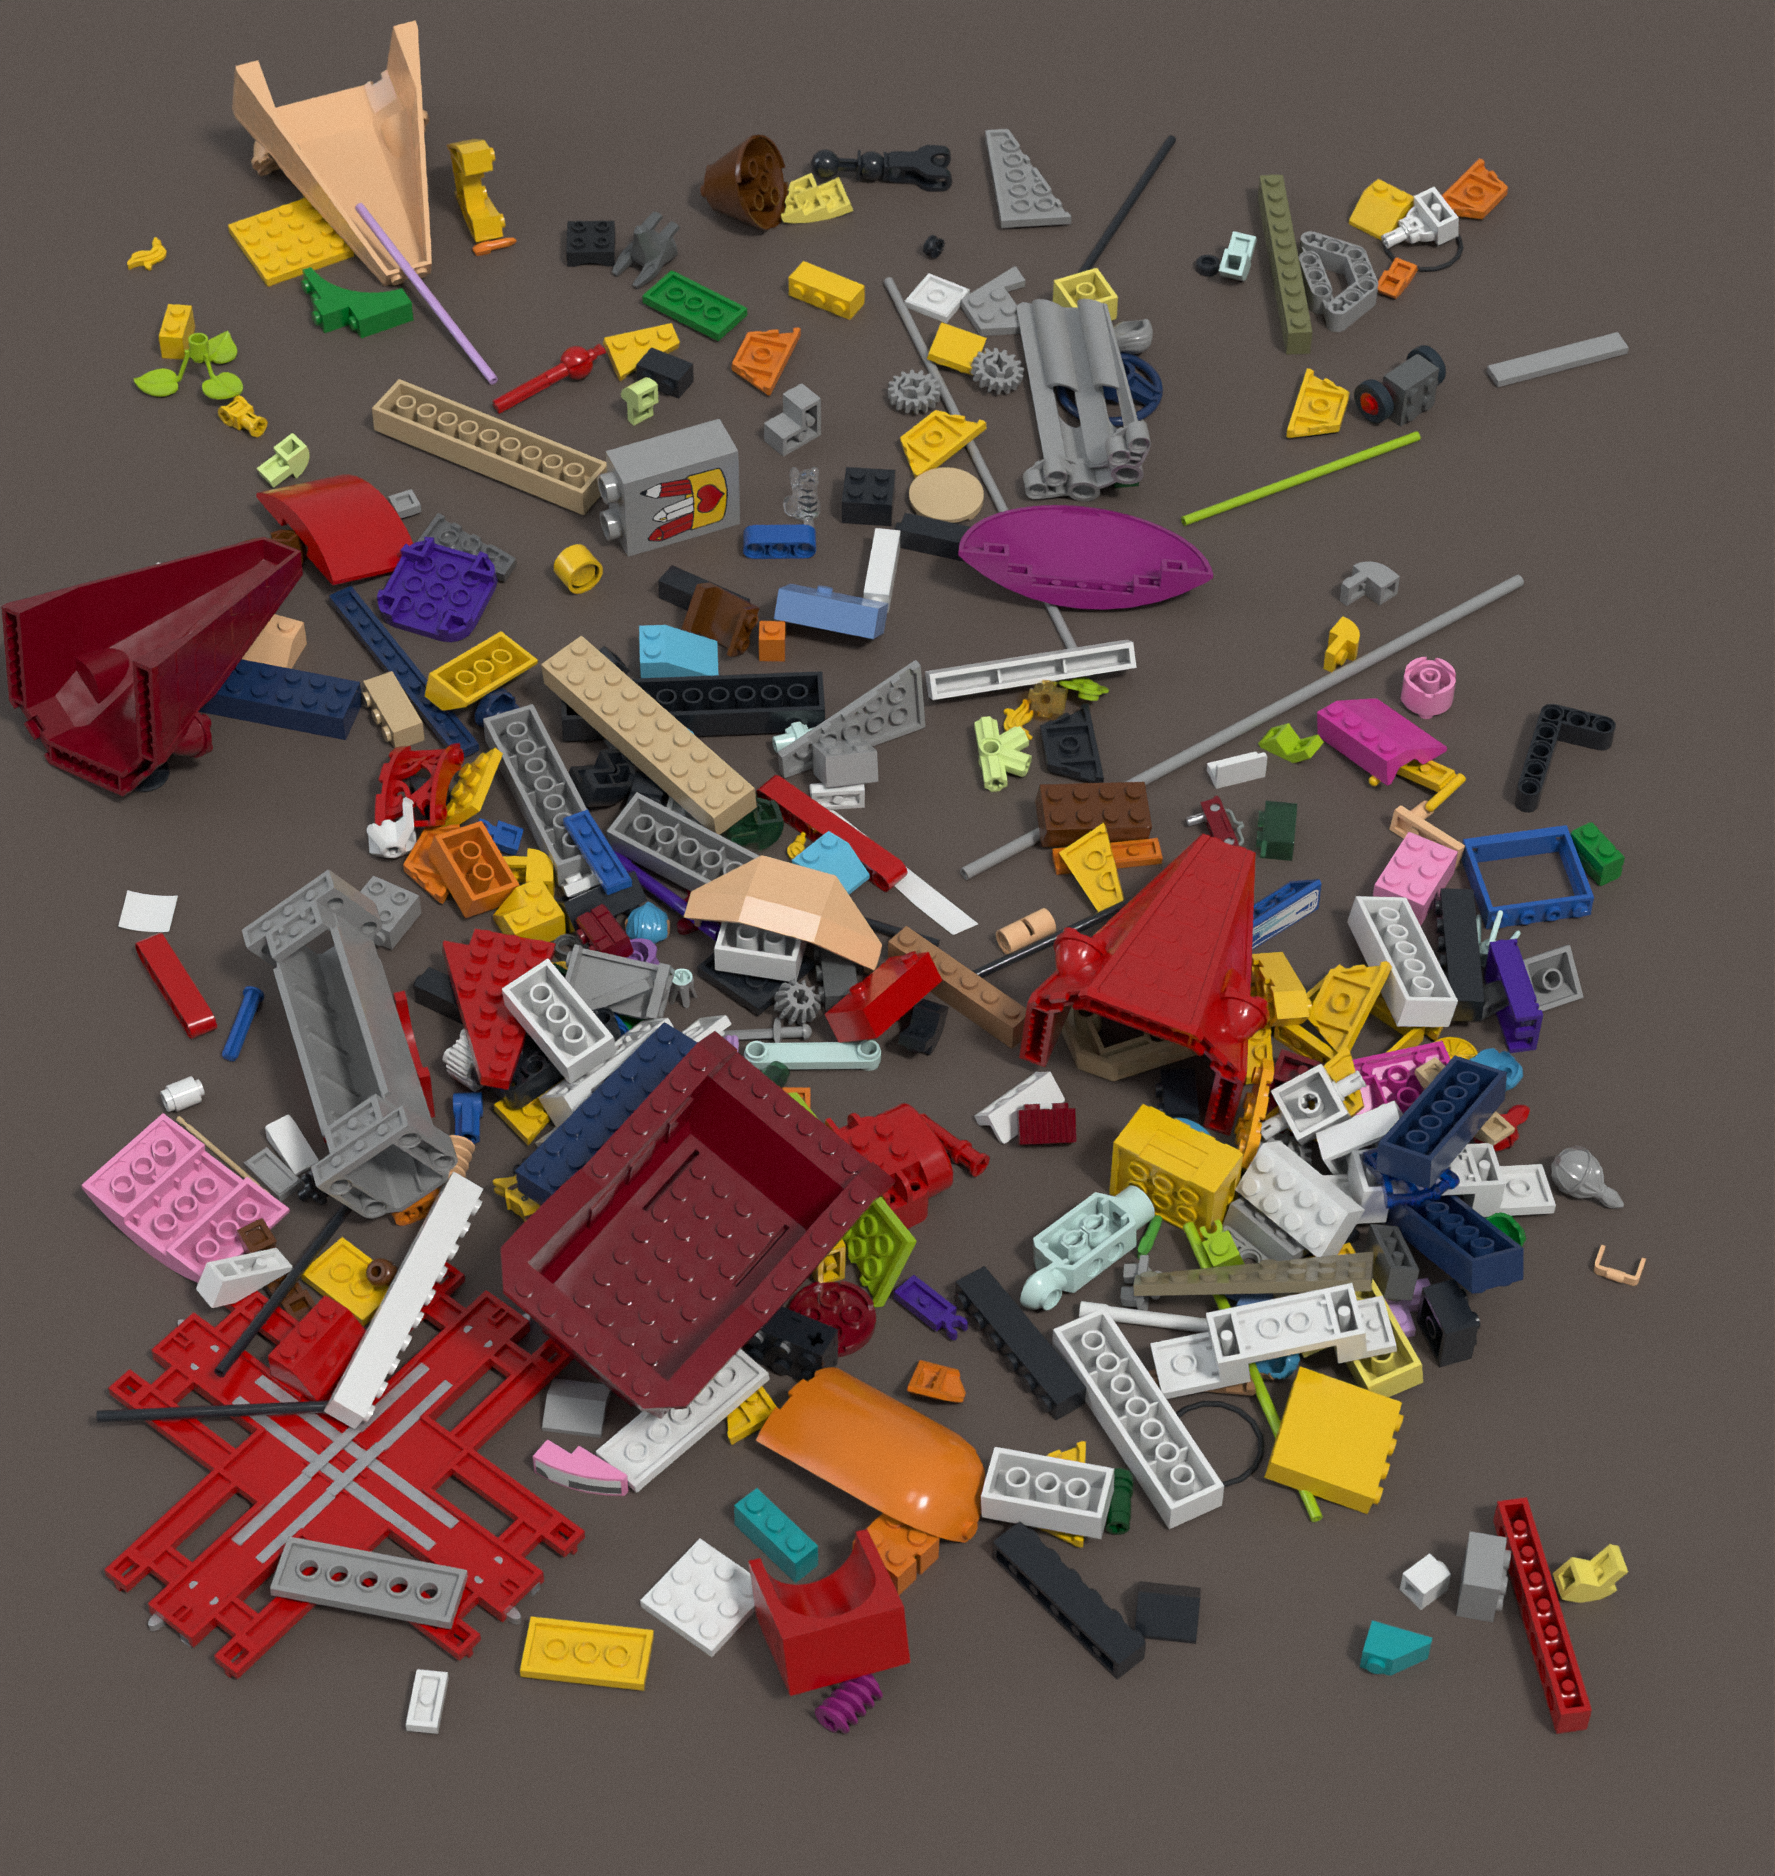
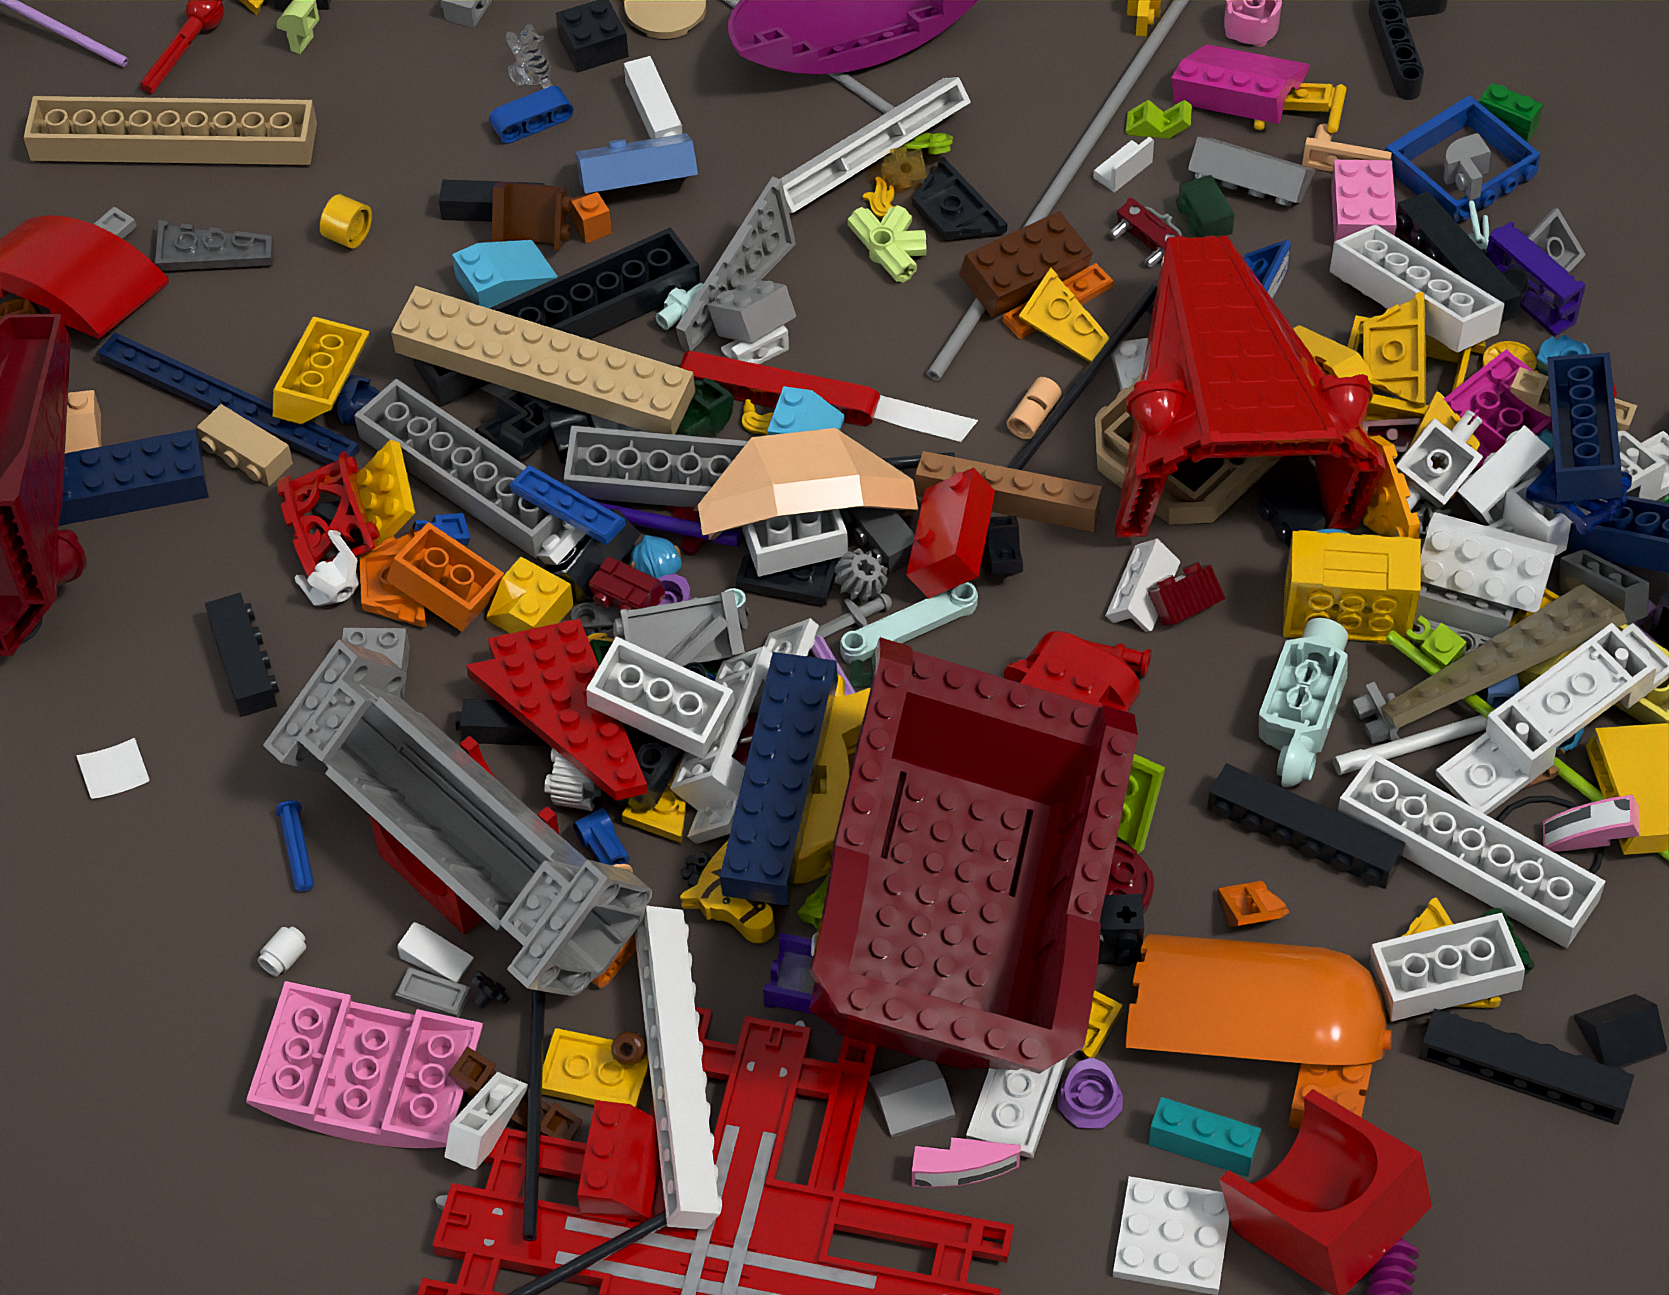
camera: 25 degrees left, 5 degrees up
(176, 985) = (198, 836): red beam -> none
(215, 1150) = (355, 995): tan piece -> none
(291, 859) = (241, 654): none -> black brick
(437, 591) = (211, 302): dark purple tile -> none
(532, 867) = (503, 549): yellow brick -> none
(670, 488) = (400, 99): light grey brick -> none
(712, 1467) = (1090, 1095): none -> medium lavender hat
(929, 1306) = (1194, 829): dark purple plate -> none
(931, 536) = (690, 49): black brick -> none
(1148, 1240) = (1353, 668): bright green piece -> none
(1248, 1440) = (1592, 824): none -> slope
(1339, 814) = (1250, 169): none -> light grey slope
(1515, 876) = (1465, 163): none -> light grey brick

